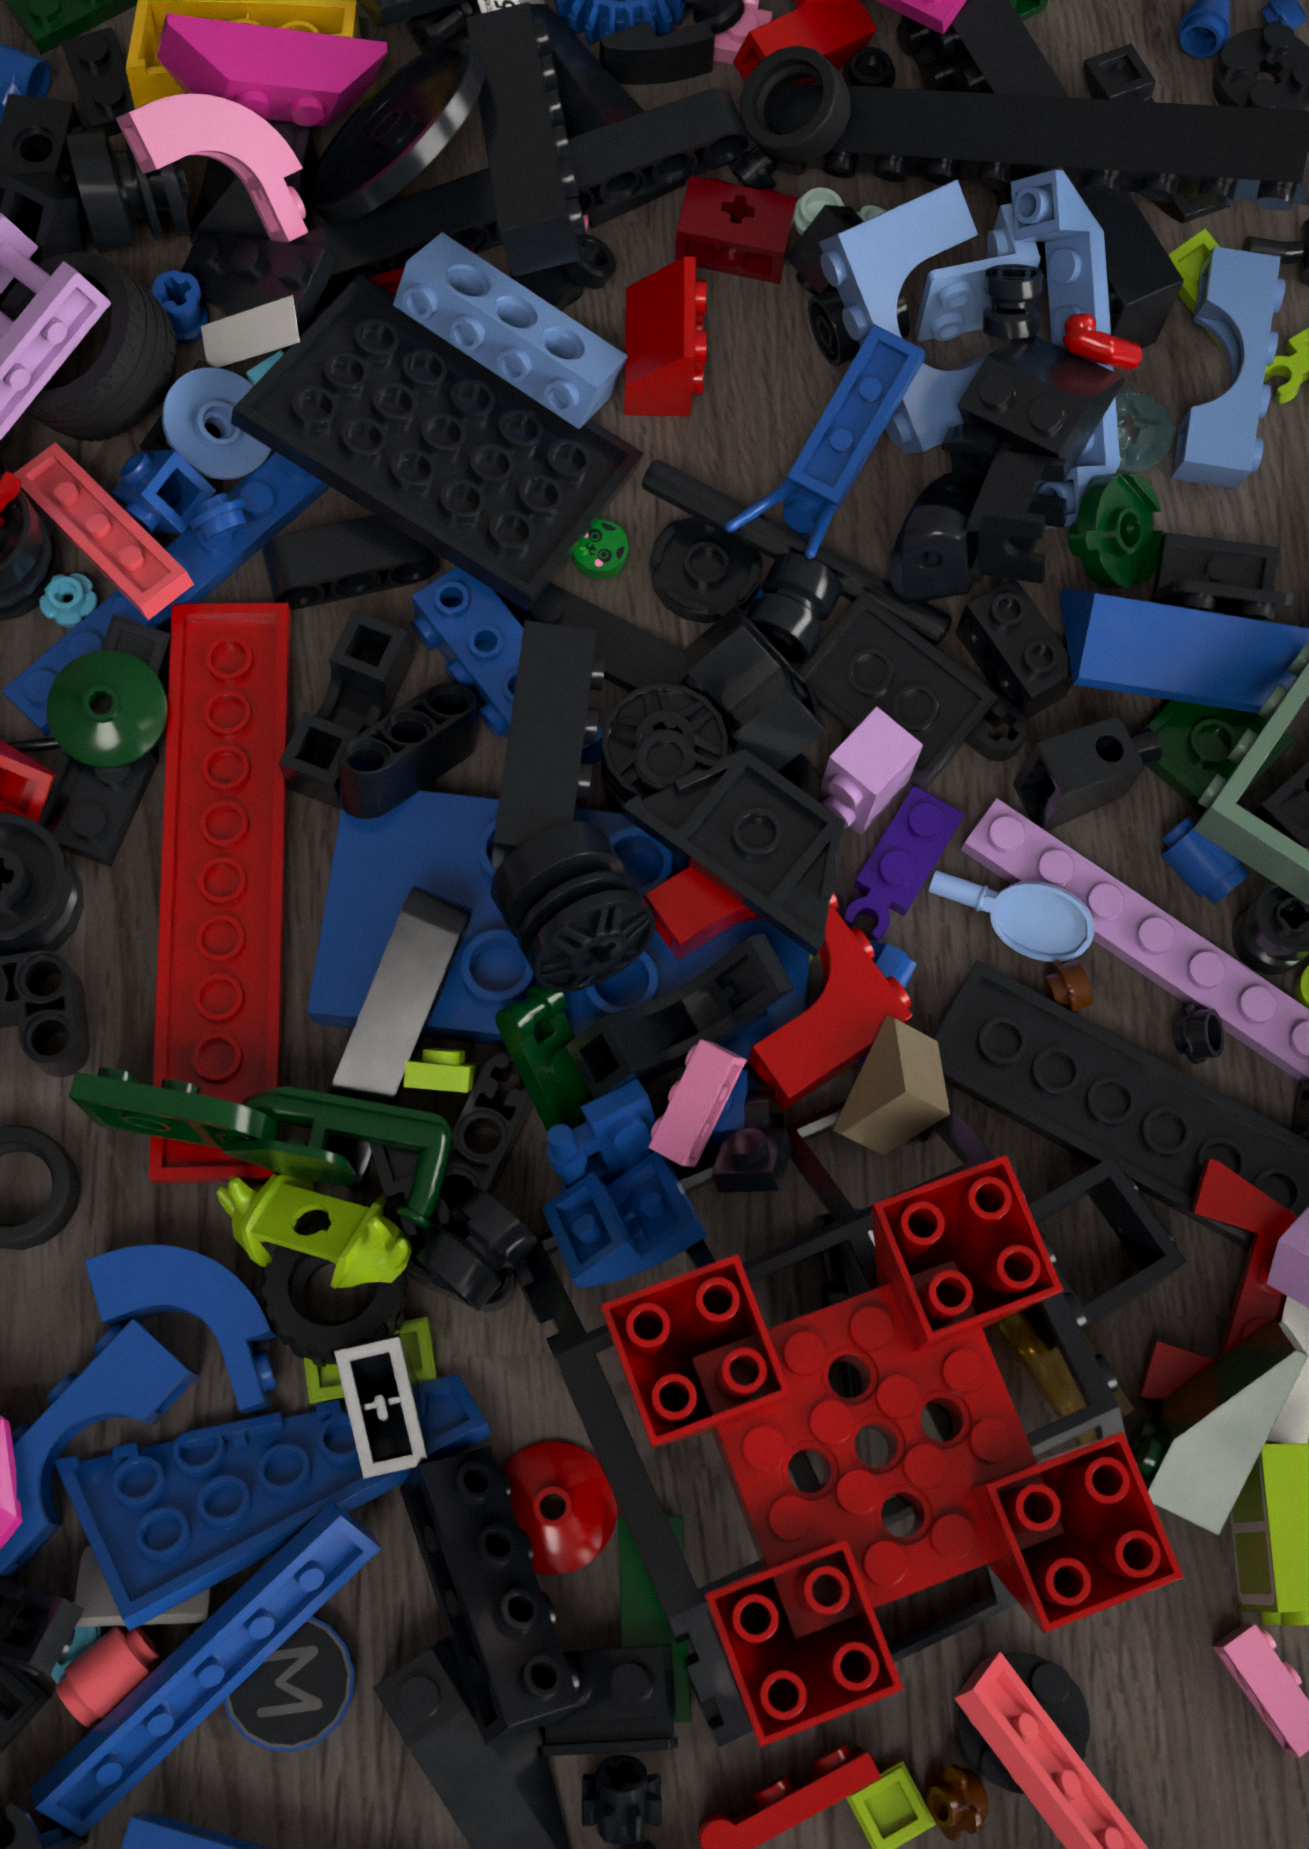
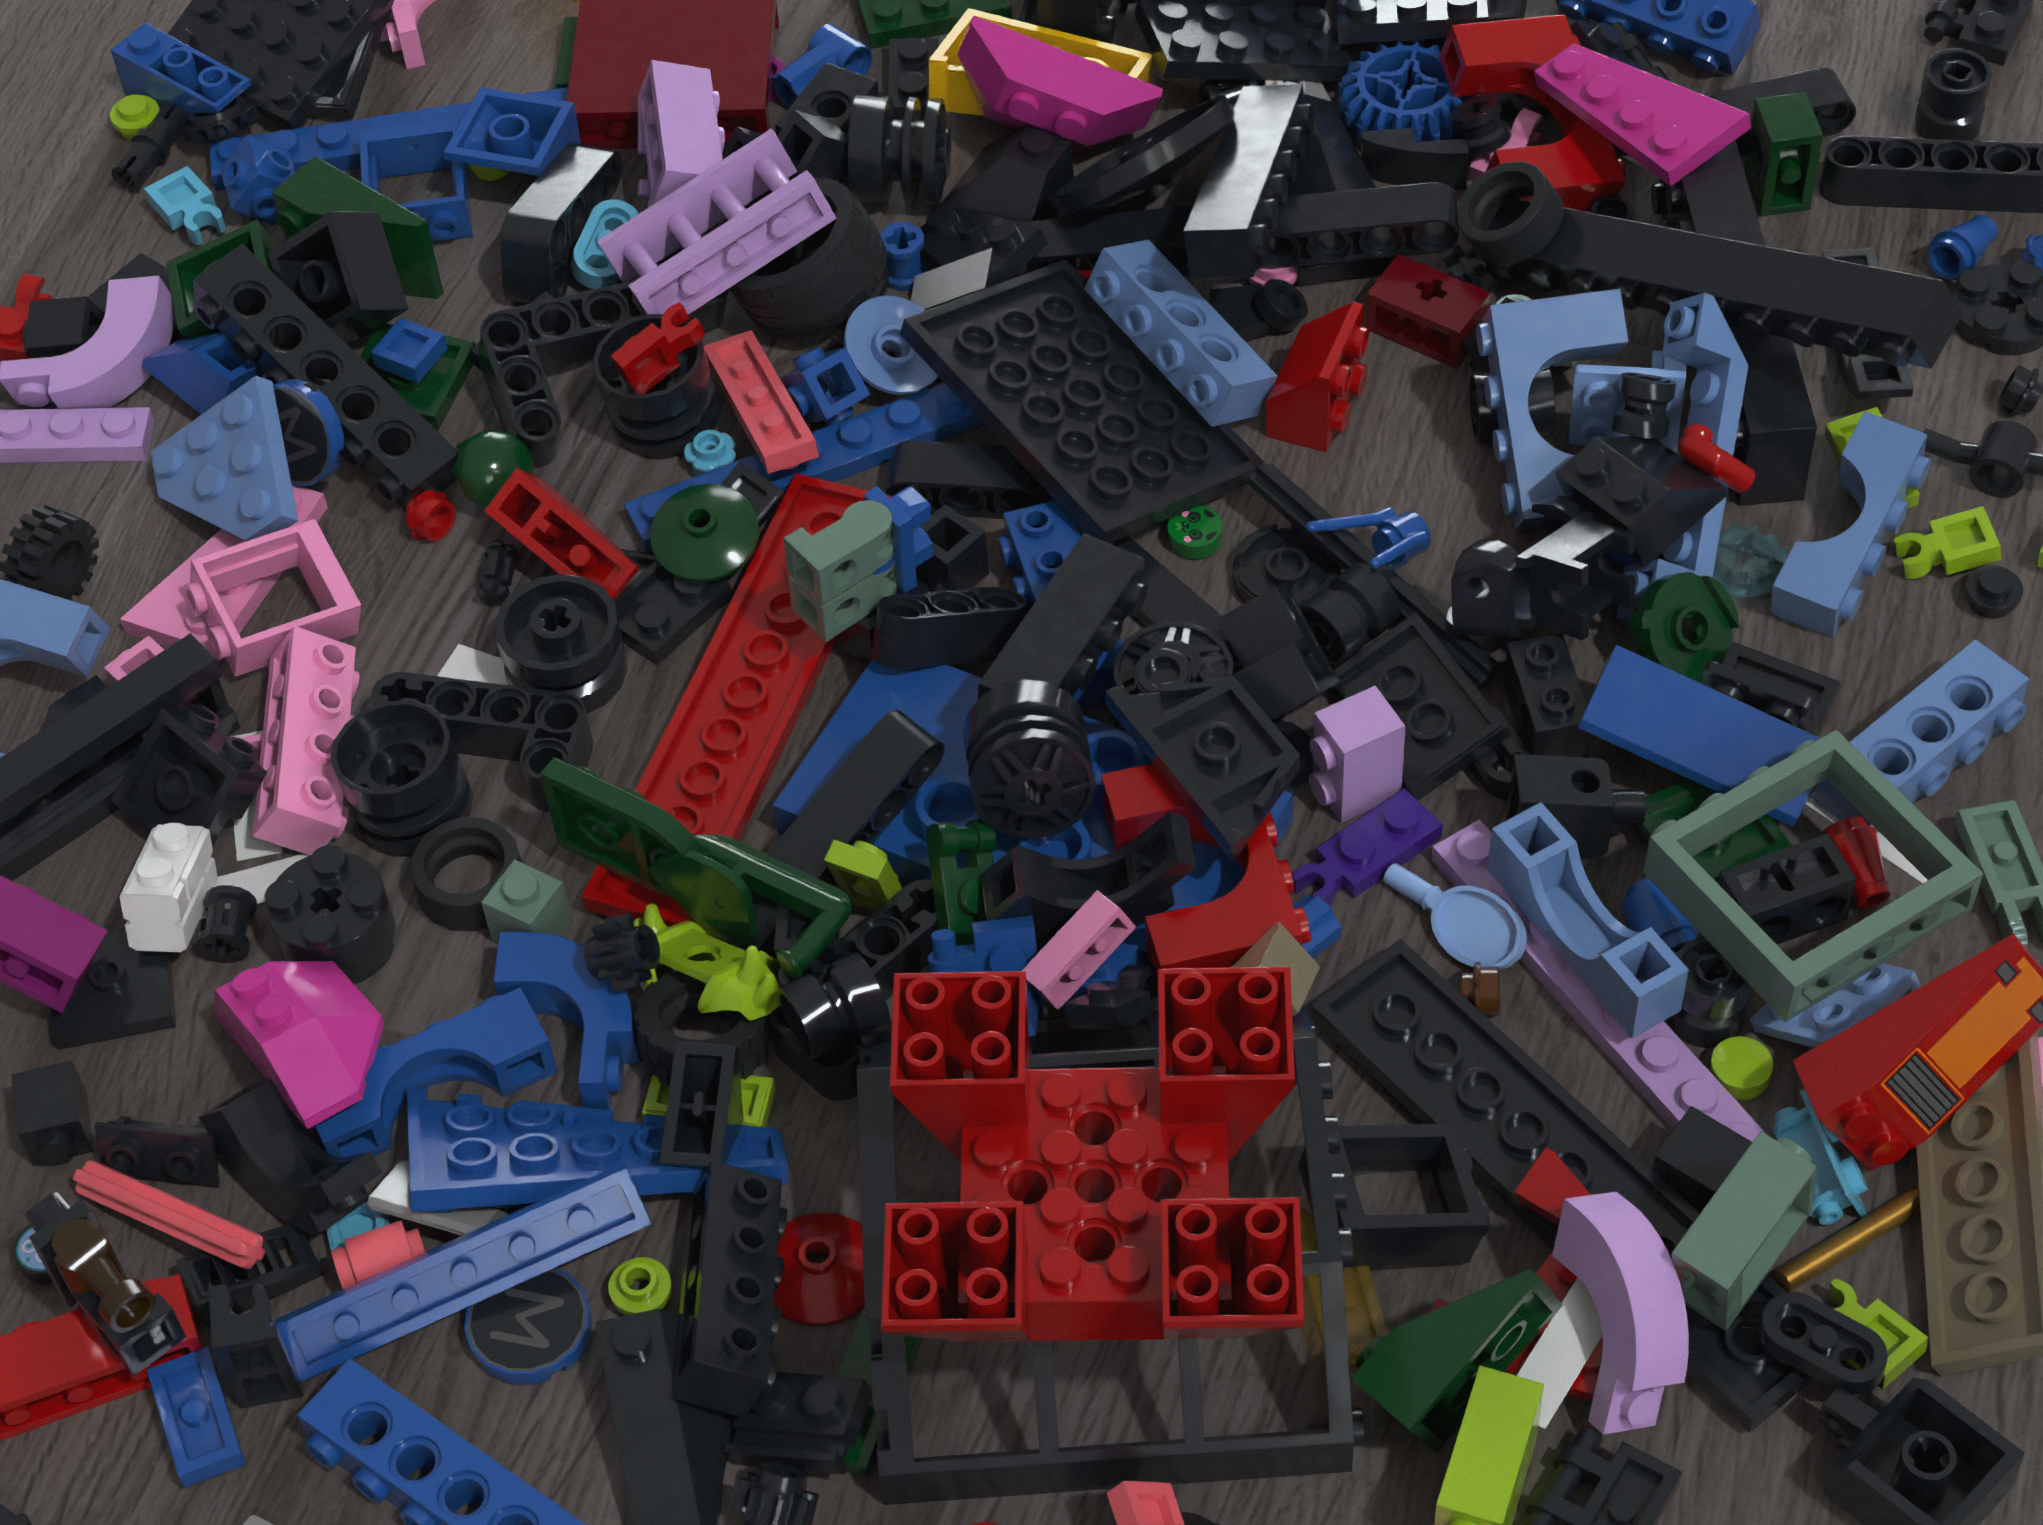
camera: 30 degrees right, 20 degrees down
(97, 1214) = (526, 903): none -> sand green brick
(218, 517) = (862, 412): blue plate -> none
(229, 134) = (989, 118): bright pink arch -> none
(231, 1257) = (622, 952): none -> black gear
(304, 721) = (857, 560): none -> sand green hips
(408, 1601) = (651, 1297): none -> lime plate
(856, 416) = (1460, 463): blue plate -> none
(1199, 1034) = (1593, 1063): black plate -> none
(1206, 936) = (1625, 969): none -> medium blue arch

